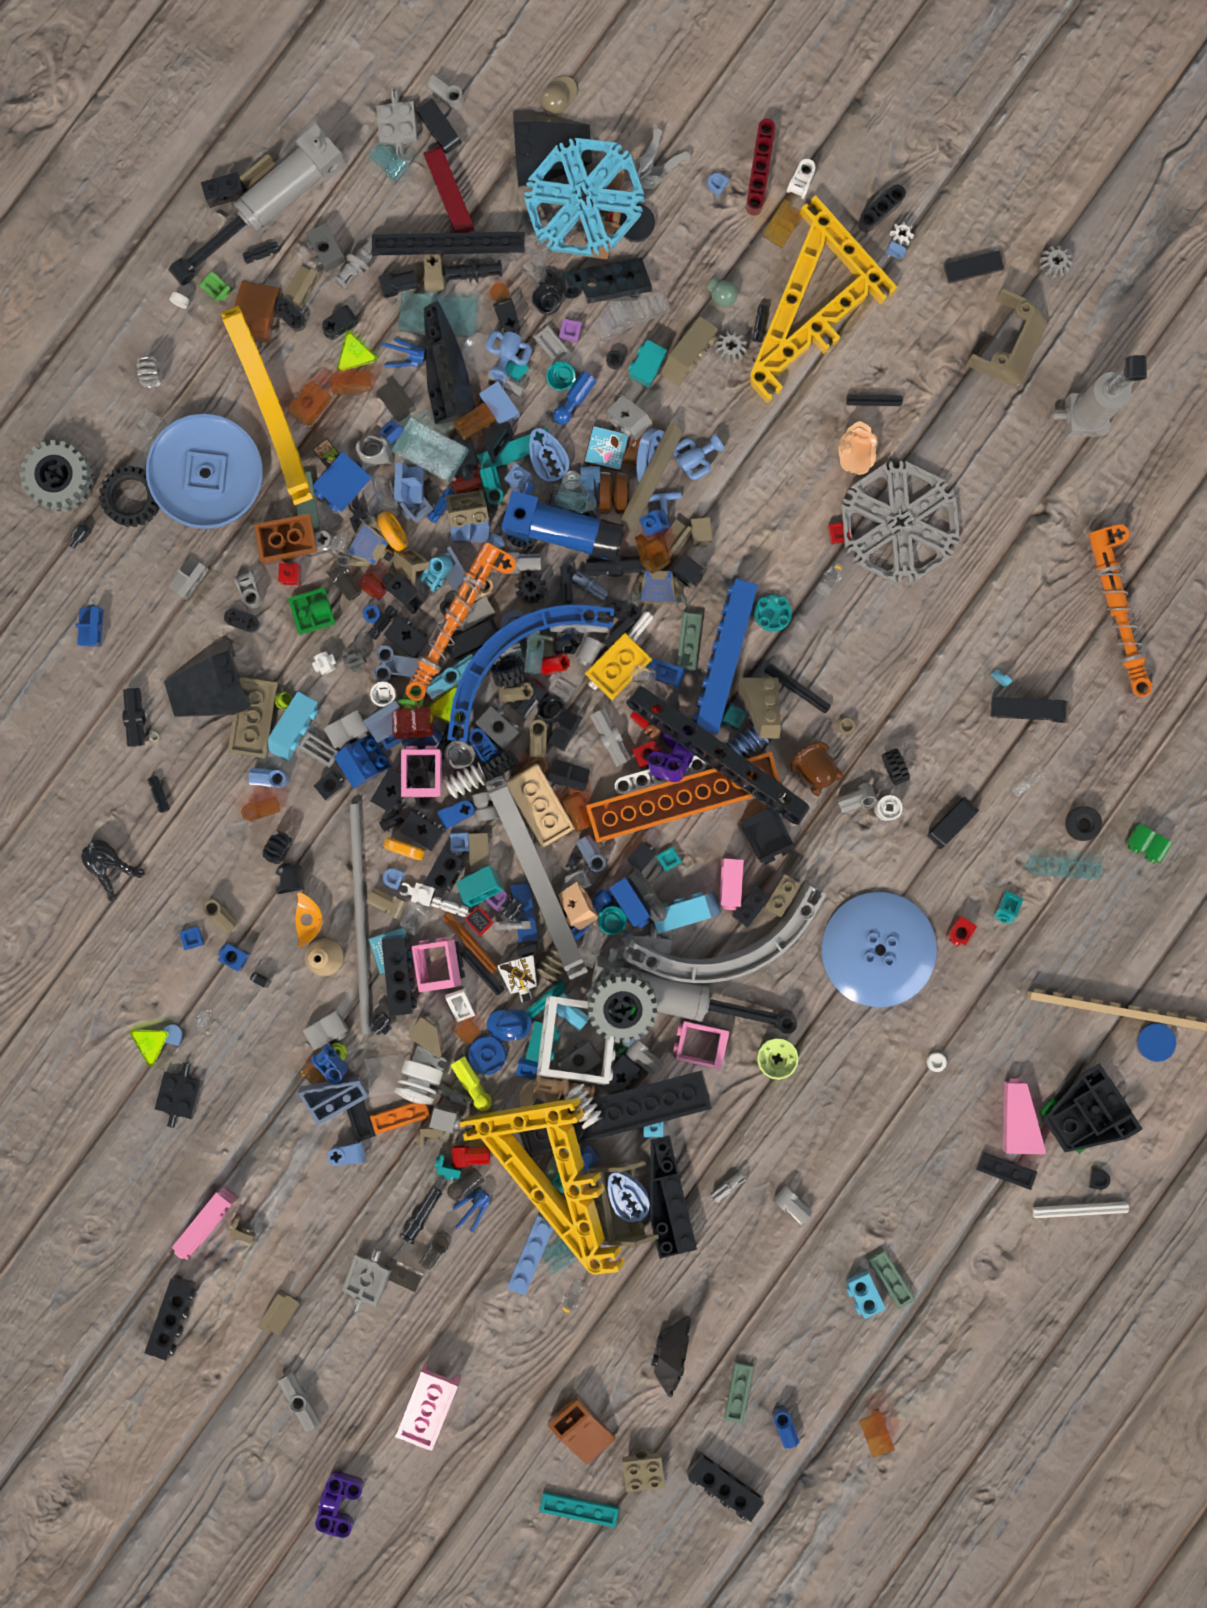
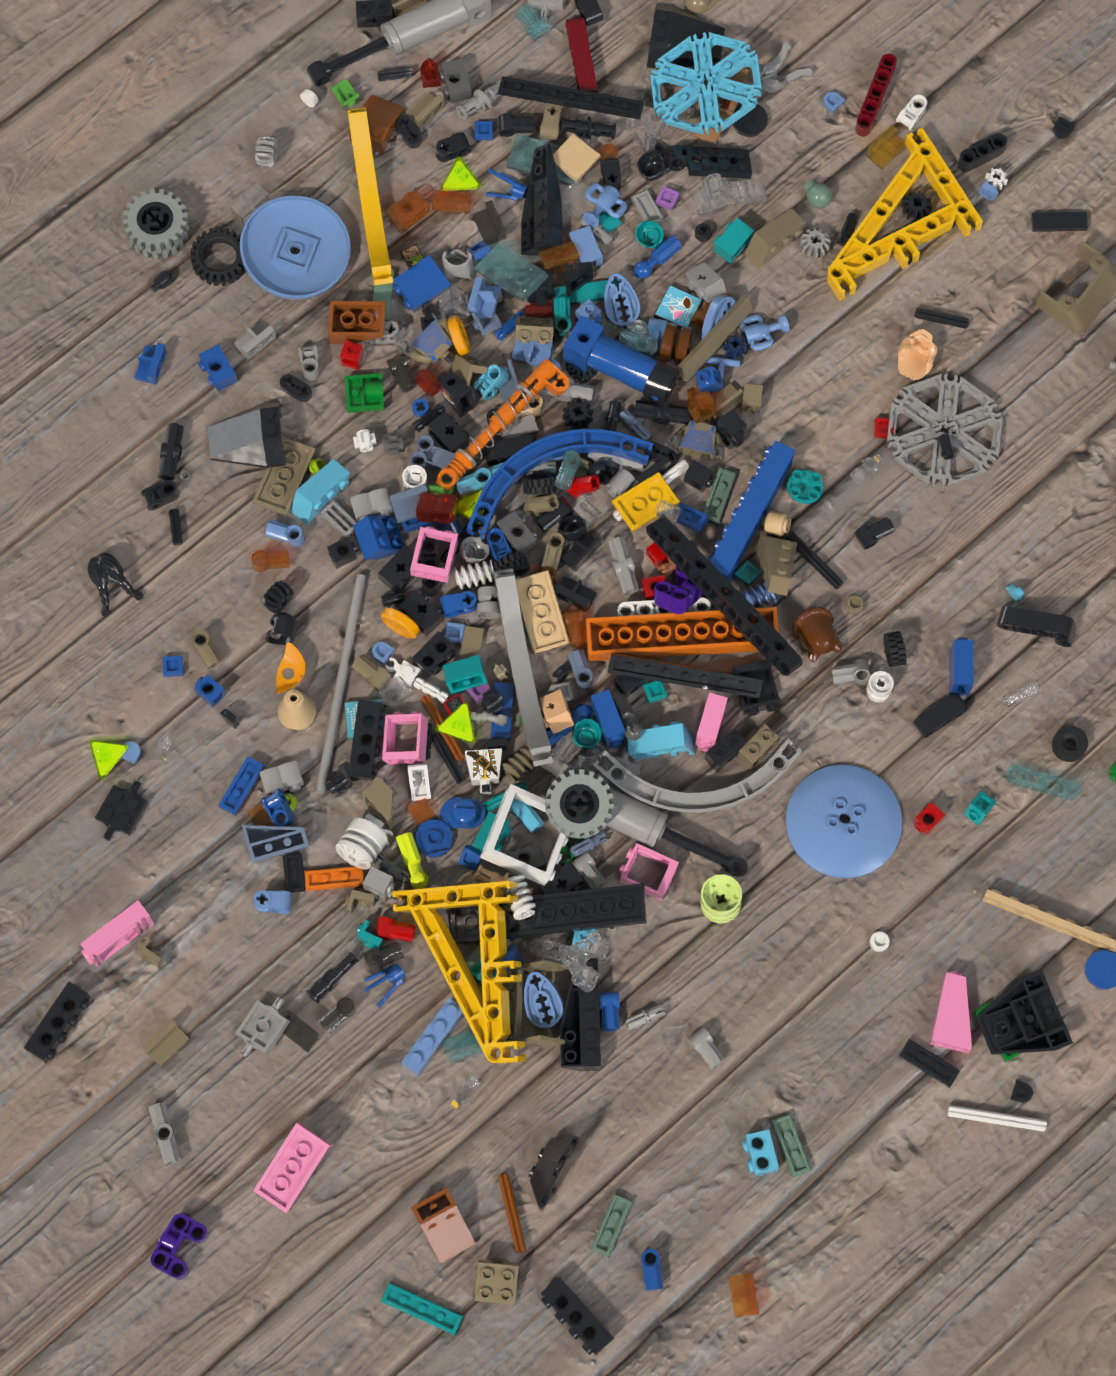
camera: 10 degrees right, 15 degrees down
(131, 766) = (159, 494): none -> black piece
(168, 622) = (215, 358): none -> blue brick
(288, 1045) = (241, 786): none -> blue plate
(297, 246) = (430, 74): none -> clear red plate
(366, 295) = (483, 130): none -> blue tile
(467, 307) = (575, 158): none -> tan tile
(485, 938) = (458, 724): none -> clear neon green piece
(513, 873) = (500, 671): none -> dark tan plate
(643, 1402) = (512, 1213): none -> dark orange axle
(661, 1170) = (591, 947): none -> clear beam
(666, 626) = (699, 476): none -> black brick
(673, 474) = (734, 347): none -> dark blue gear
(692, 1185) = (609, 1007): none -> blue piece
(695, 841) = (685, 675): none -> black plate
(752, 659) = (776, 523): none -> tan head
(832, 287) = (909, 205): none -> black gear
(847, 650) = (869, 535): none -> black piece
(906, 542) = (946, 447): none -> black pin
(958, 160) = (1063, 128): none -> black tile
(964, 770) = (961, 666): none -> blue brick

